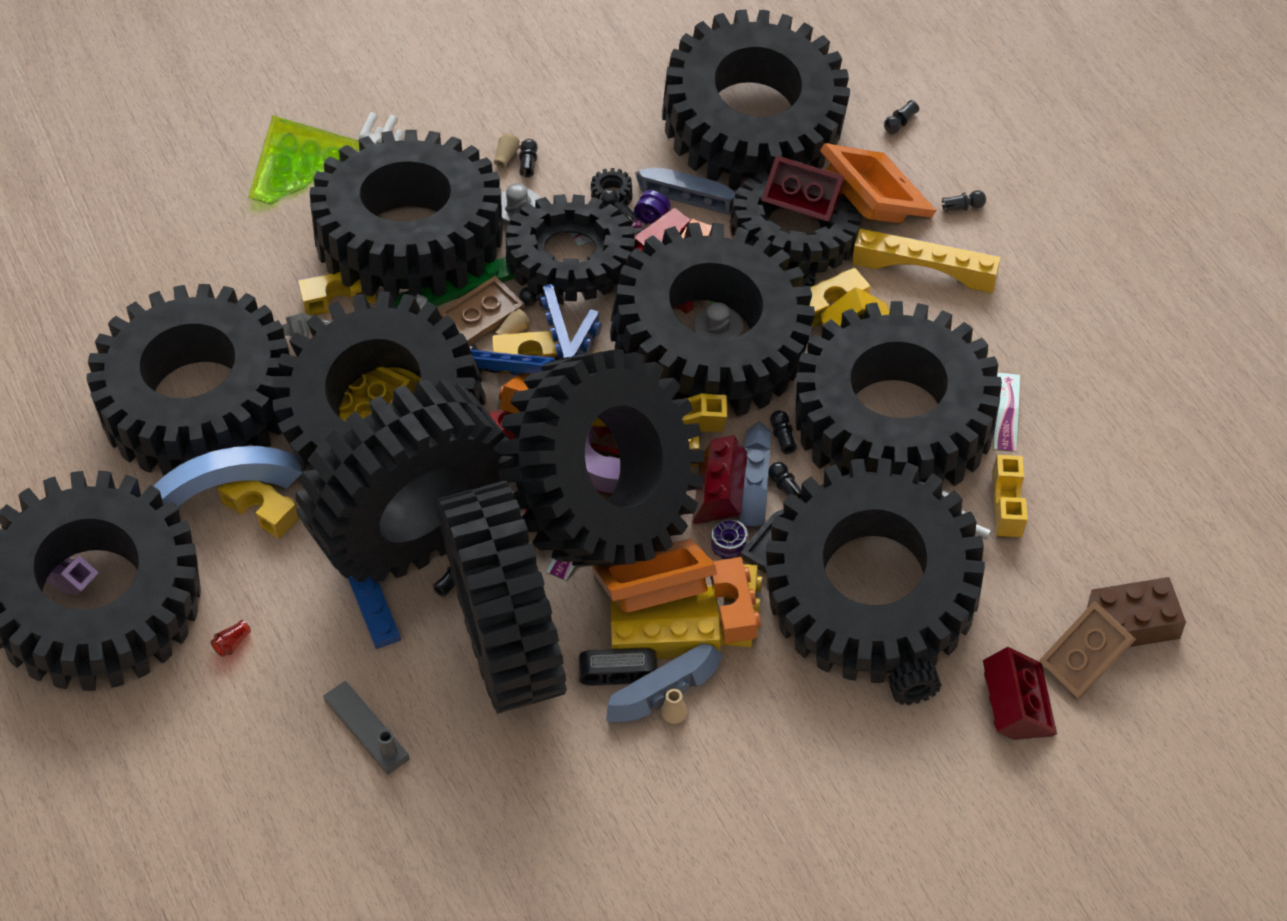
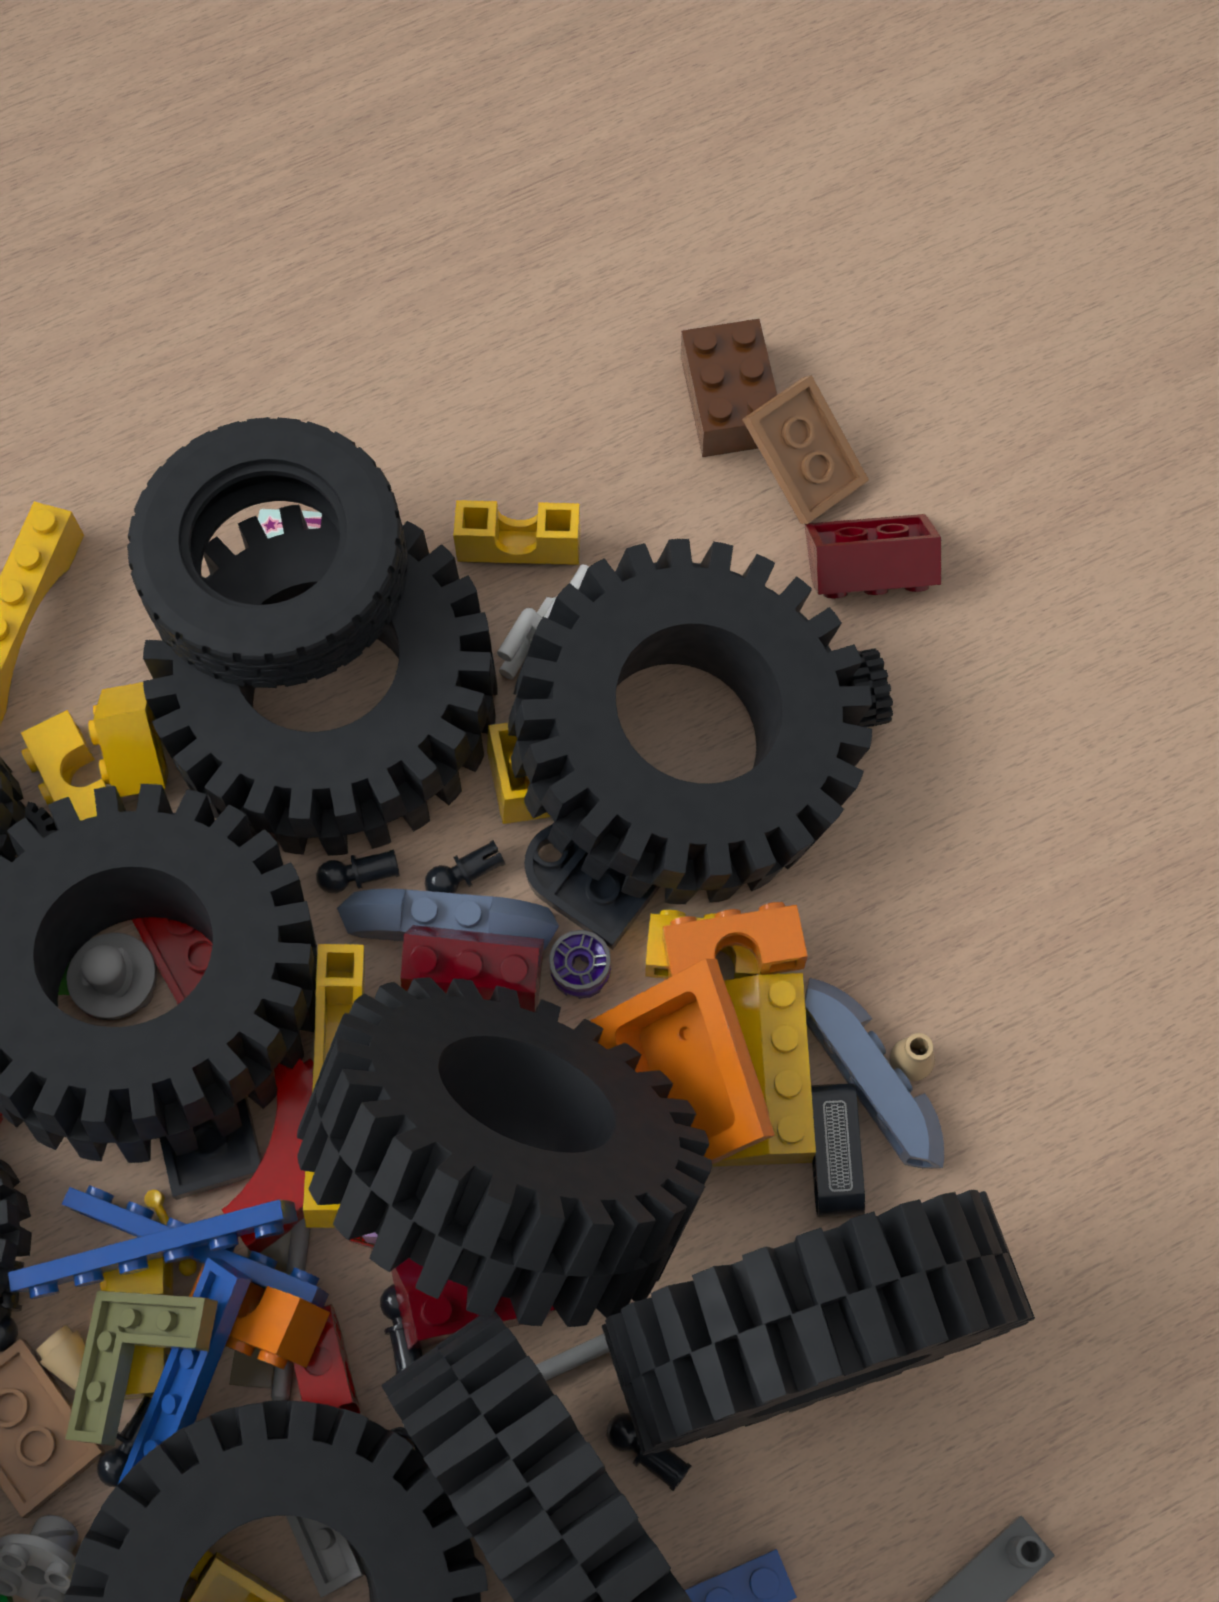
camera: 90 degrees left, 15 degrees up
(522, 335) = (115, 1328): none -> olive plate
(948, 388) = (252, 466): none -> black tyre

